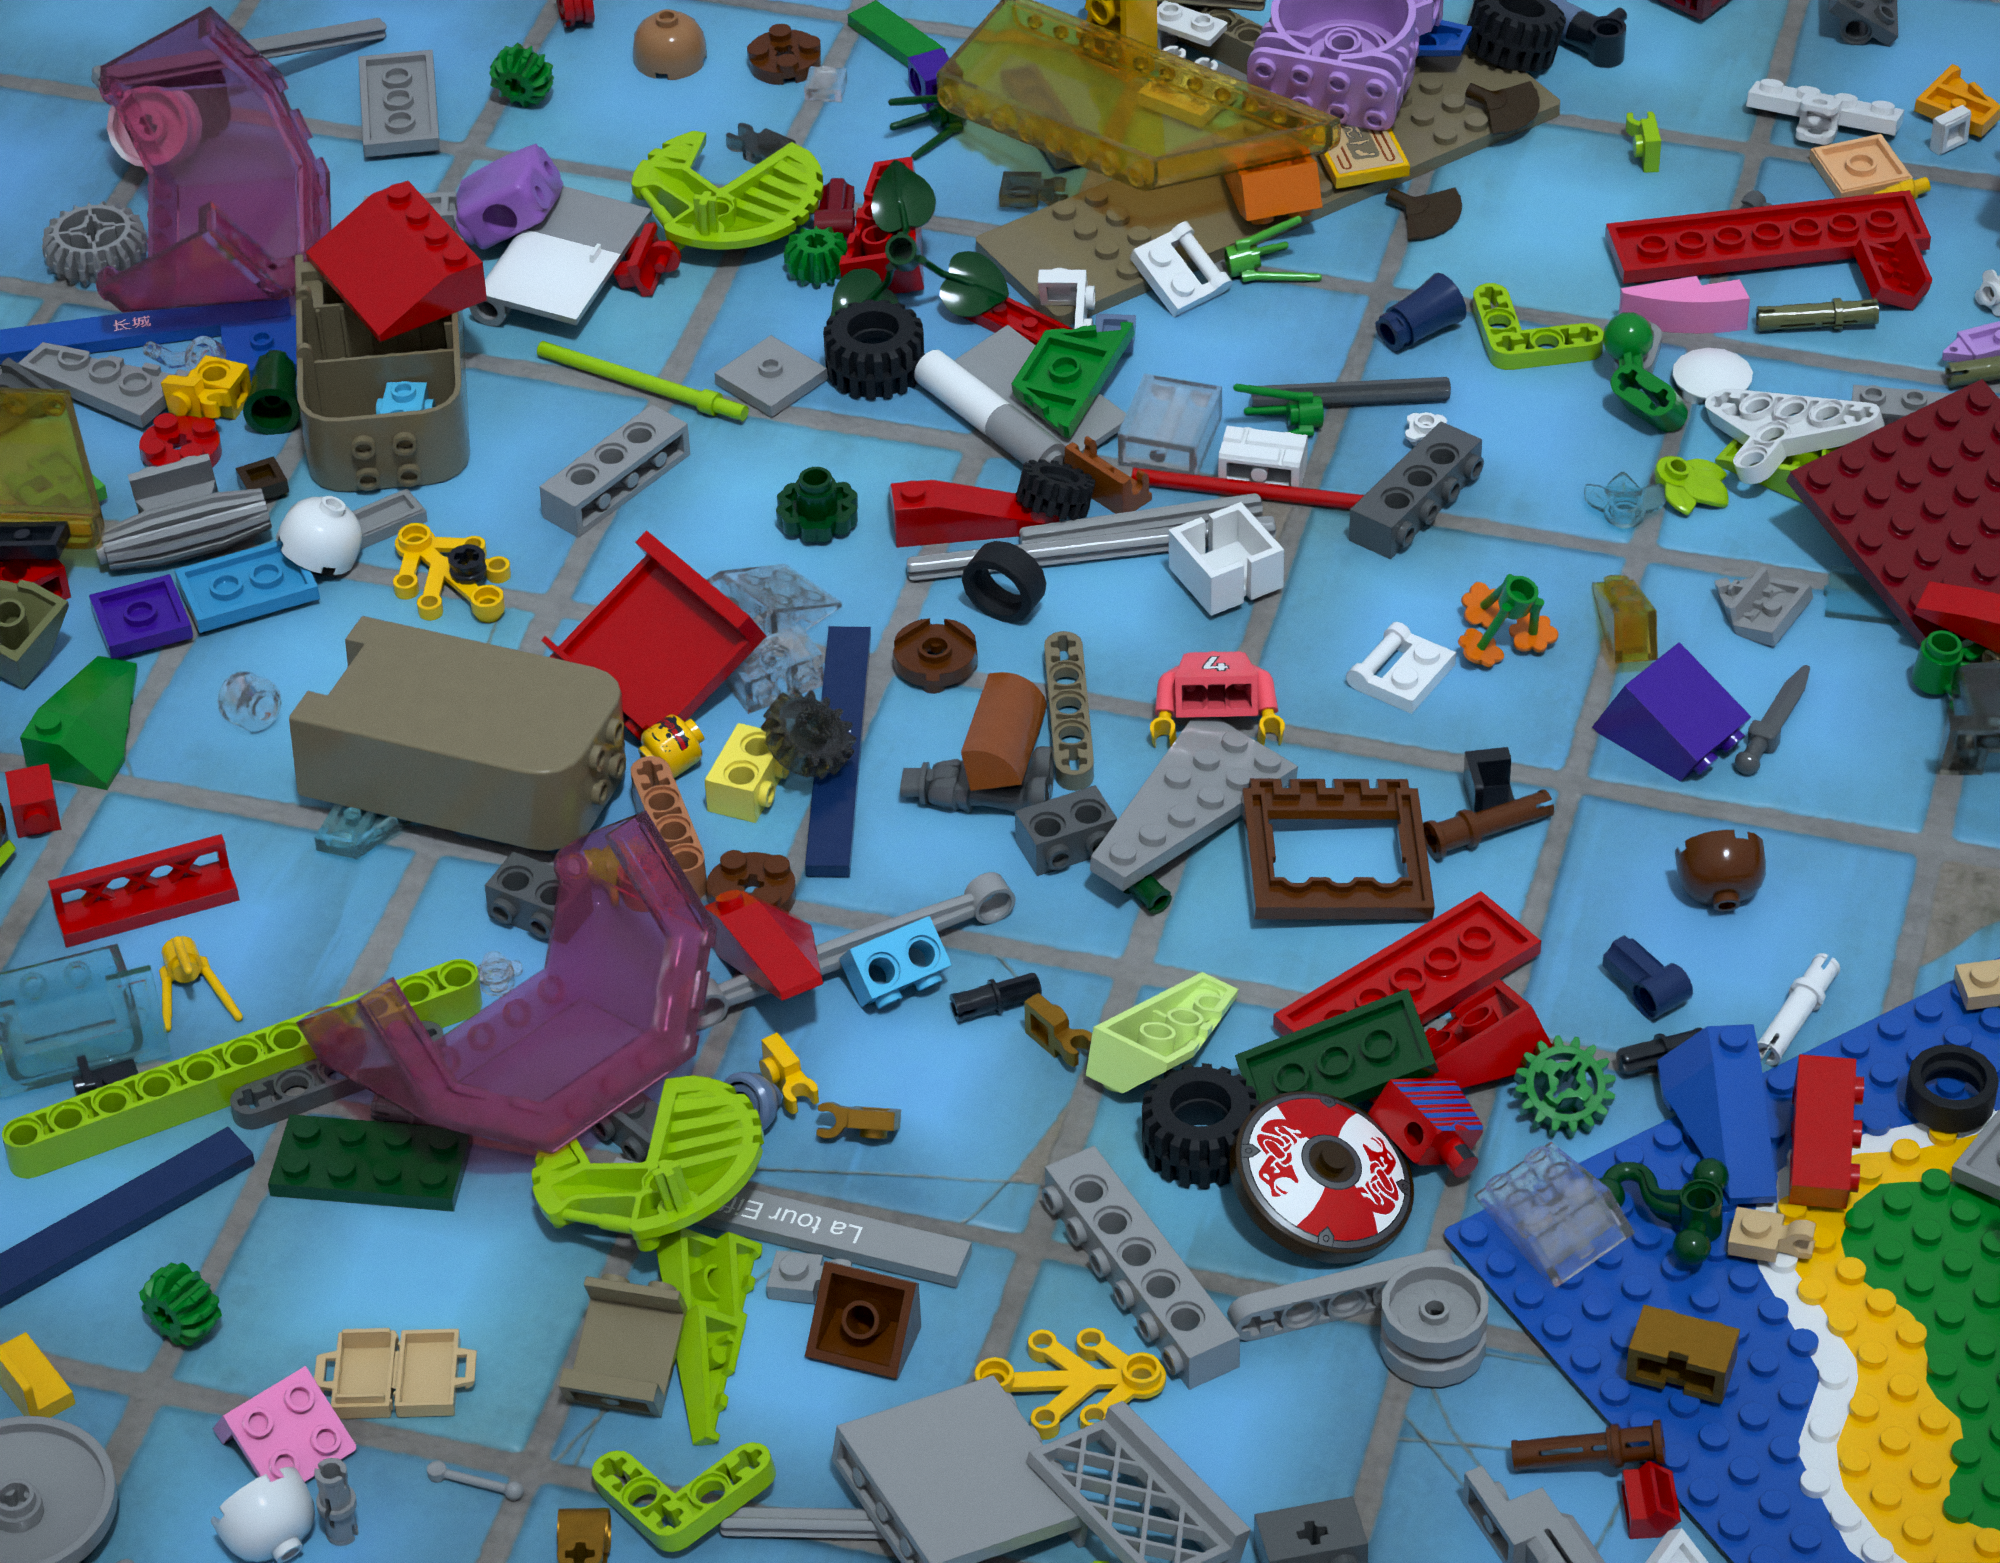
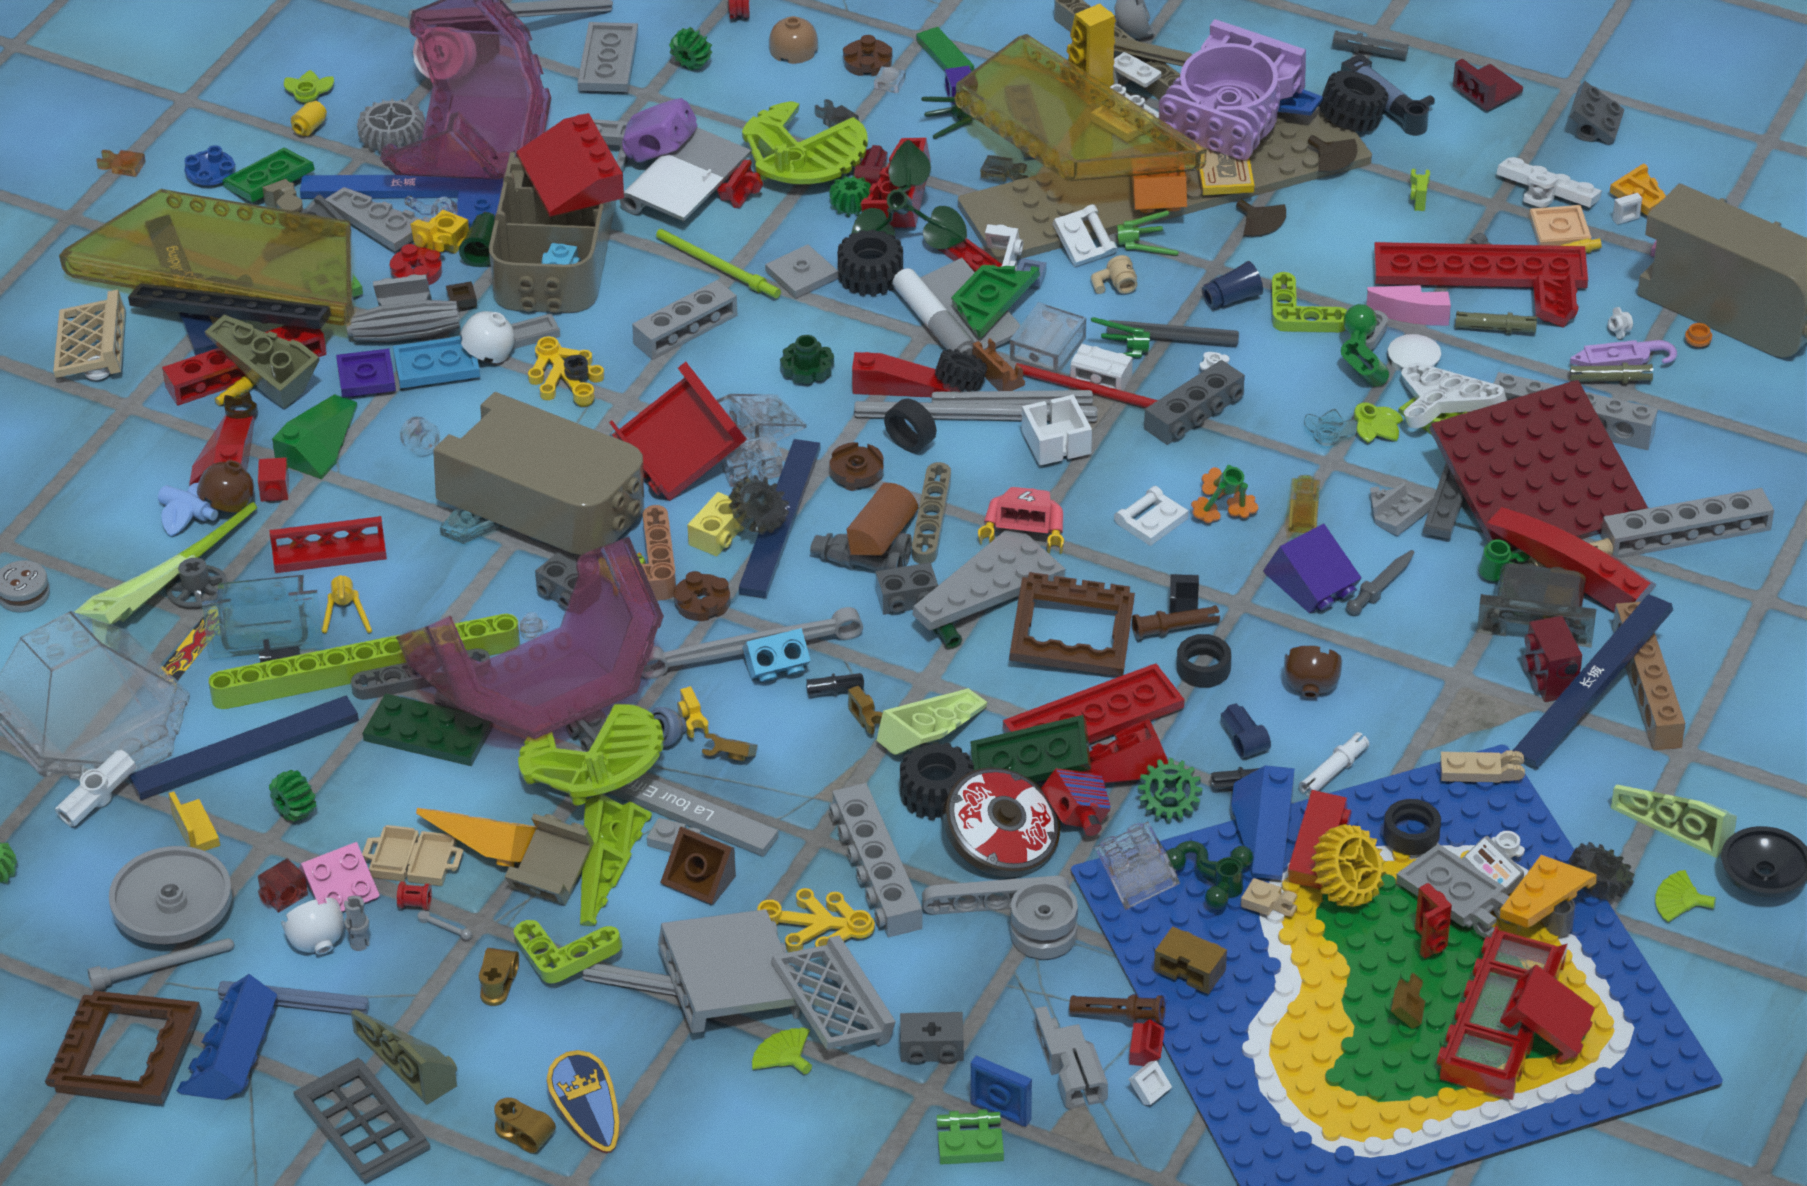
camera: 10 degrees right, 0 degrees up
(195, 1456) = (282, 885): none -> clear red brick
(415, 1439) = (414, 895): none -> red bush
(524, 1327) = (487, 836): none -> light orange wedge
(673, 741) = (675, 499): yellow head -> none
(765, 943) = (698, 629): red wedge -> none
(1250, 317) = (1121, 273): none -> tan piece
(1553, 853) = (1203, 675): none -> black tyre
(1833, 589) = (1444, 507): none -> dark grey tile
(1885, 1165) = (1348, 865): none -> yellow gear

